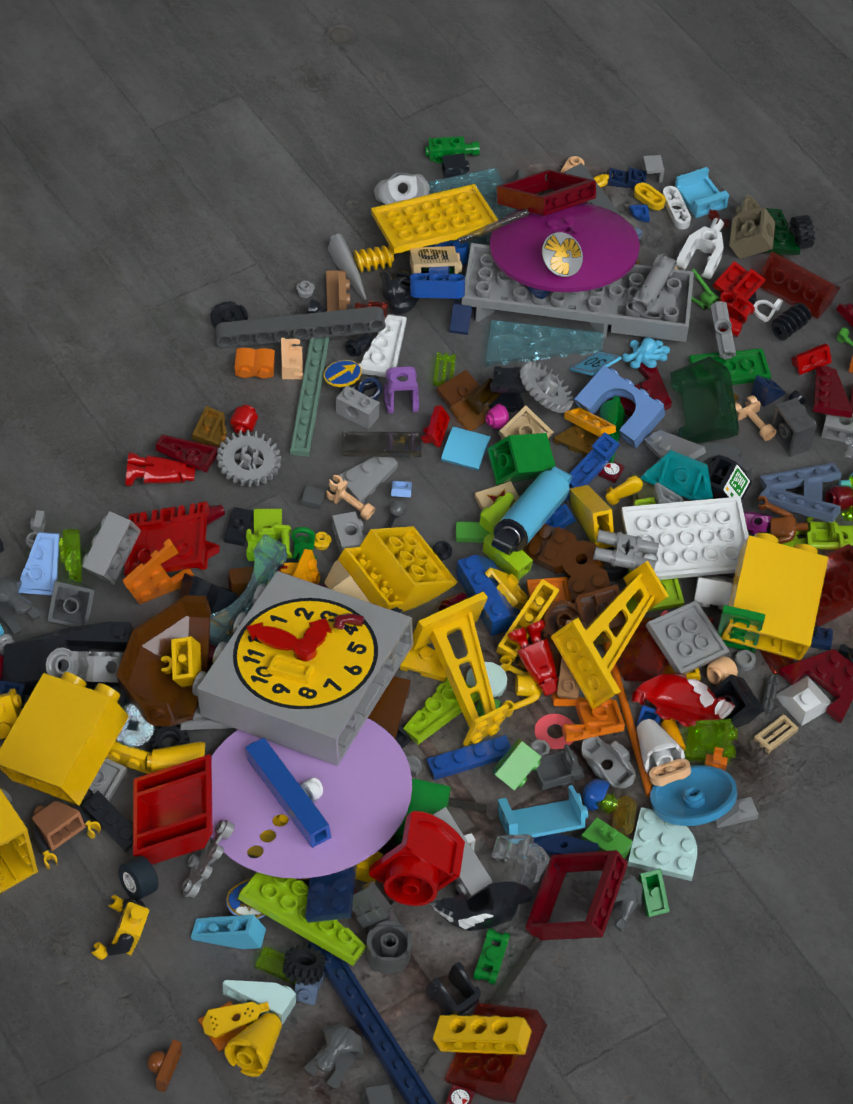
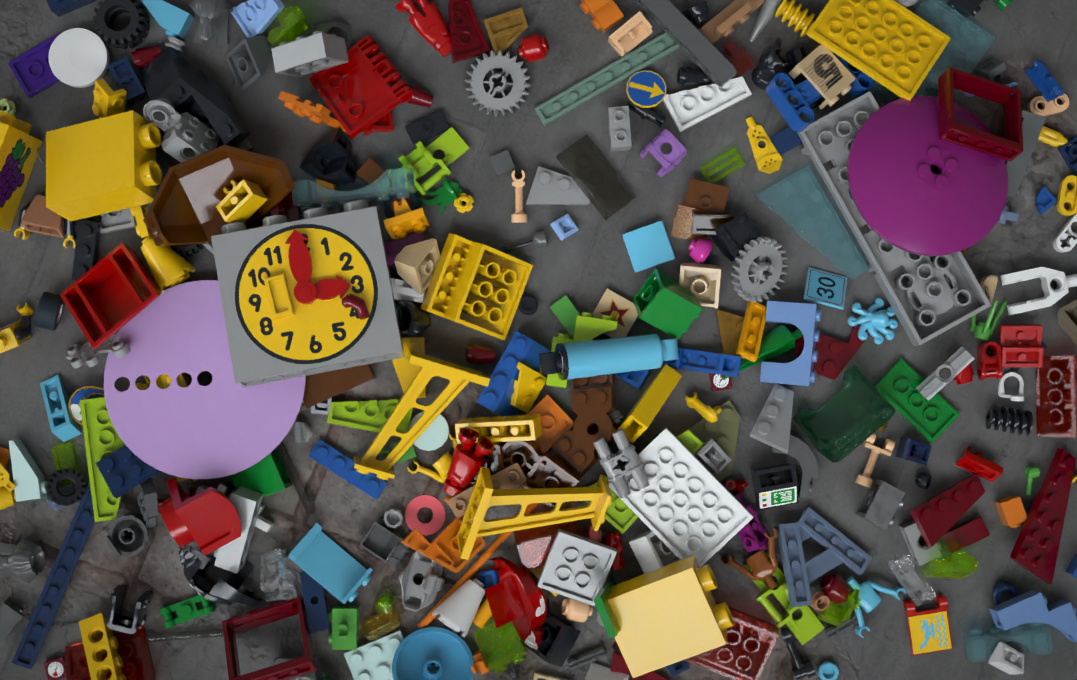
camera: 60 degrees right, 35 degrees up
(288, 792) = (185, 370): blue brick -> none
(313, 788) = (197, 388): white tile -> none
(347, 530) = (485, 210): light grey brick -> none
(375, 396) = (636, 128): dark blue piece -> none
(437, 428) = (654, 207): red plate -> none
(460, 341) = (763, 154): none -> yellow piece
(493, 226) = (902, 98): clear smoke bar -> none
(517, 764) = (357, 515): brick -> none
(545, 160) = (1044, 81): none -> blue hinge
(562, 254) = (893, 193): shield -> none
(594, 792) = (381, 591): blue hair -> none
(662, 270) = (943, 284): light grey piece -> none
(670, 772) = (444, 633): light nougat plate -> none
(681, 475) = (744, 450): teal wing -> none
(845, 510) = (820, 601): none -> nougat plate

